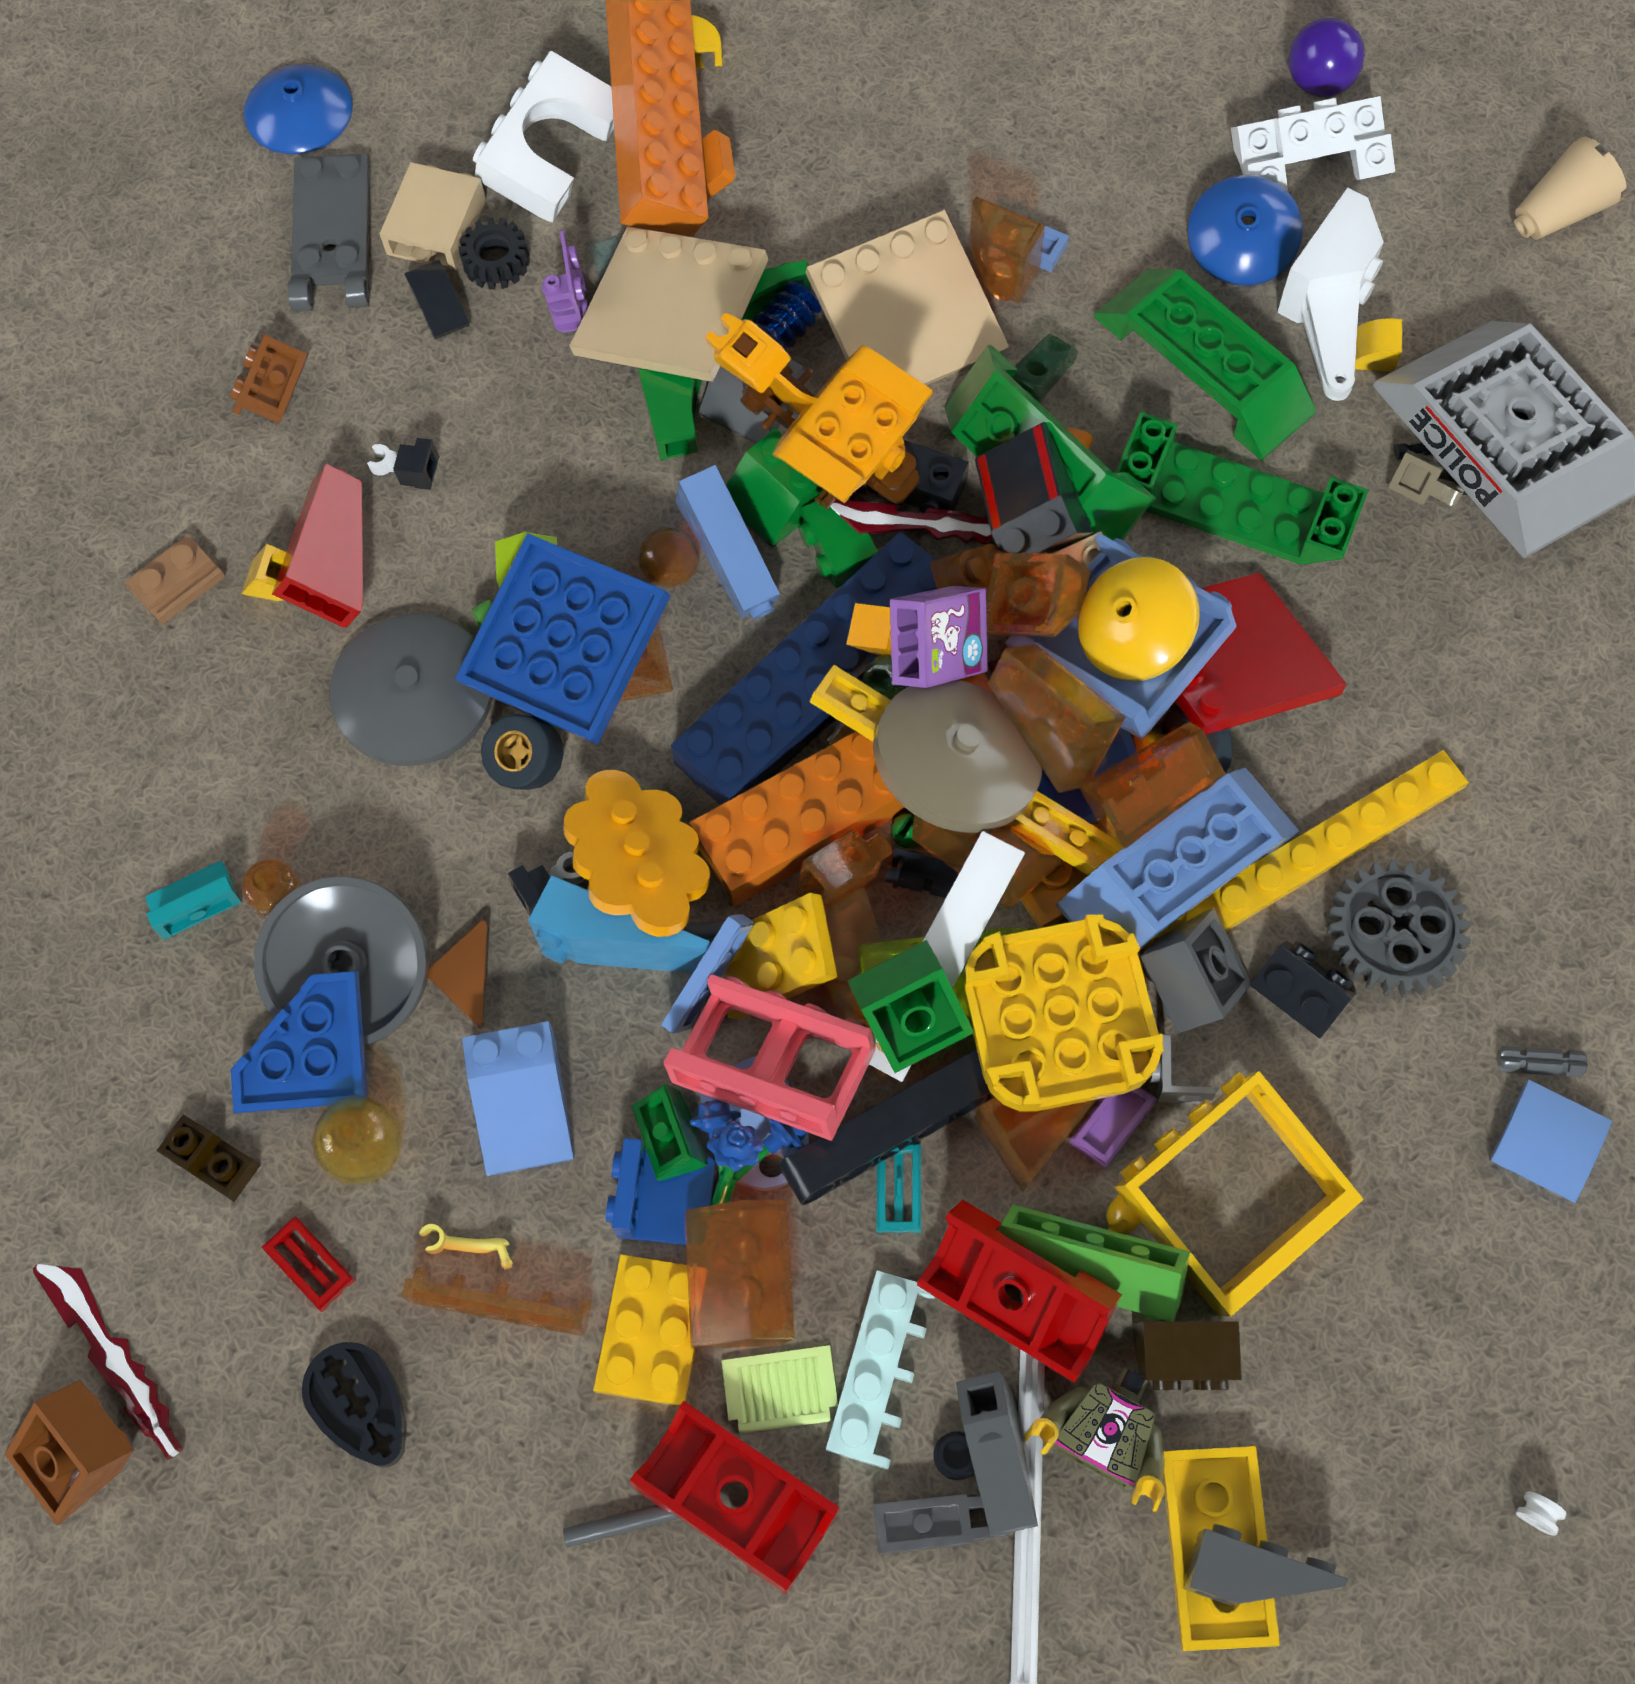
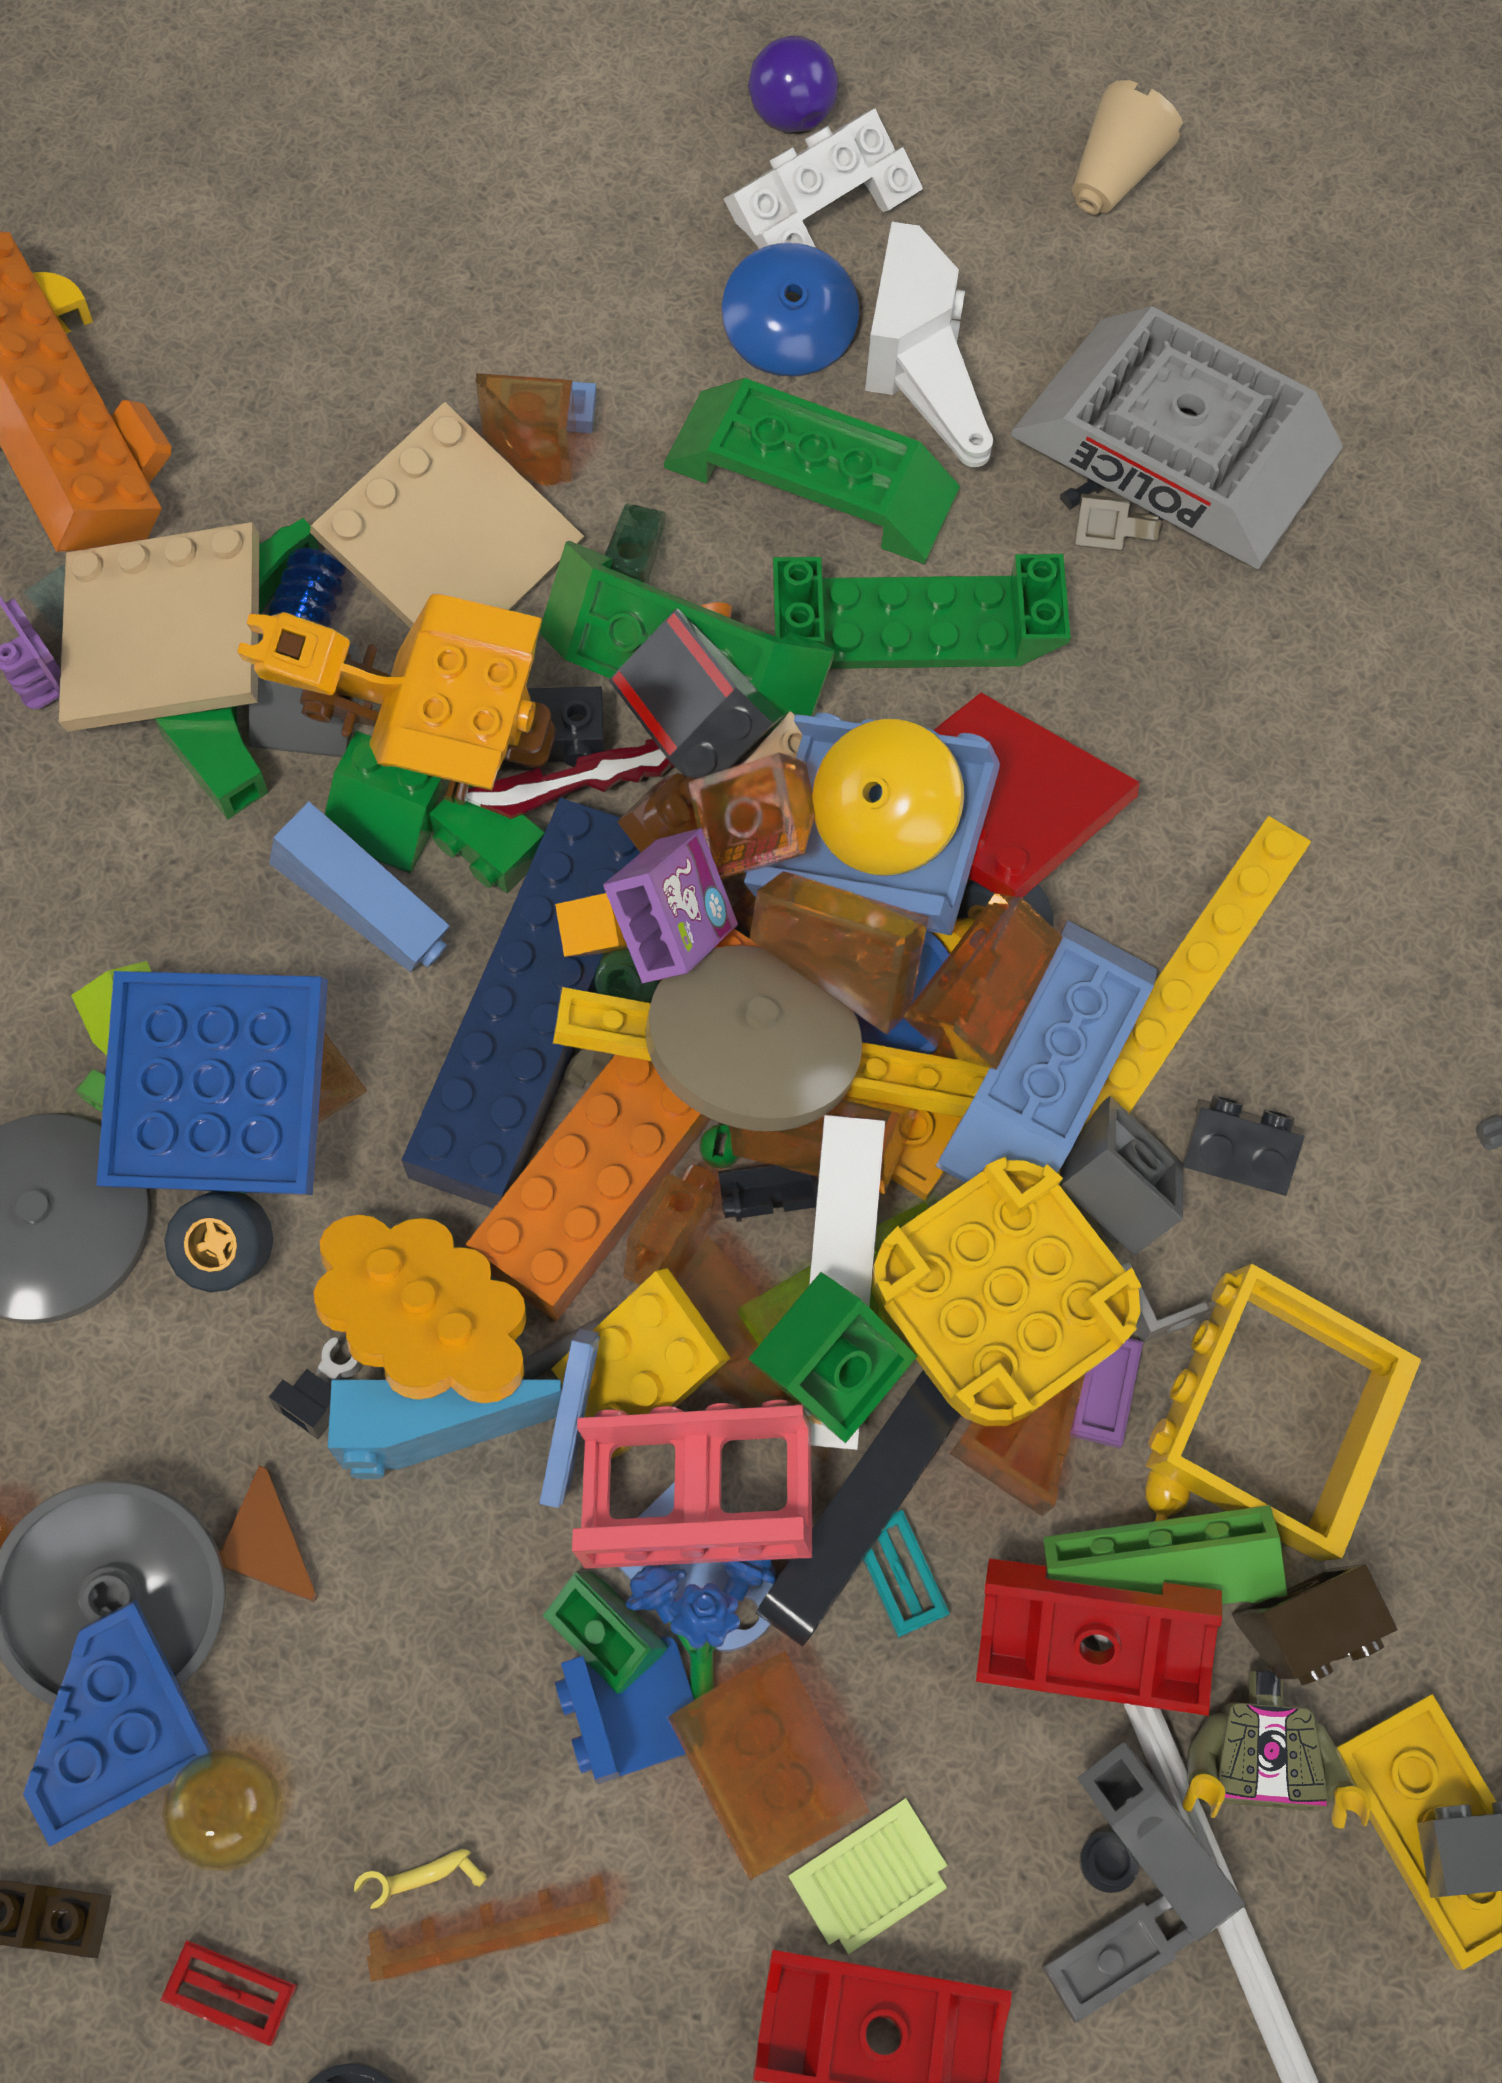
camera: 30 degrees left, 0 degrees up
(518, 1098) = (403, 1669): medium blue slope -> none
(647, 1333) = (687, 1884): yellow plate -> none
(668, 557) = (291, 933): clear orange hair -> none
(874, 1369) = (970, 1803): light aqua hinge -> none
(1374, 953) = (1302, 1075): dark grey gear -> none
(1379, 345) = (998, 386): yellow brick -> none

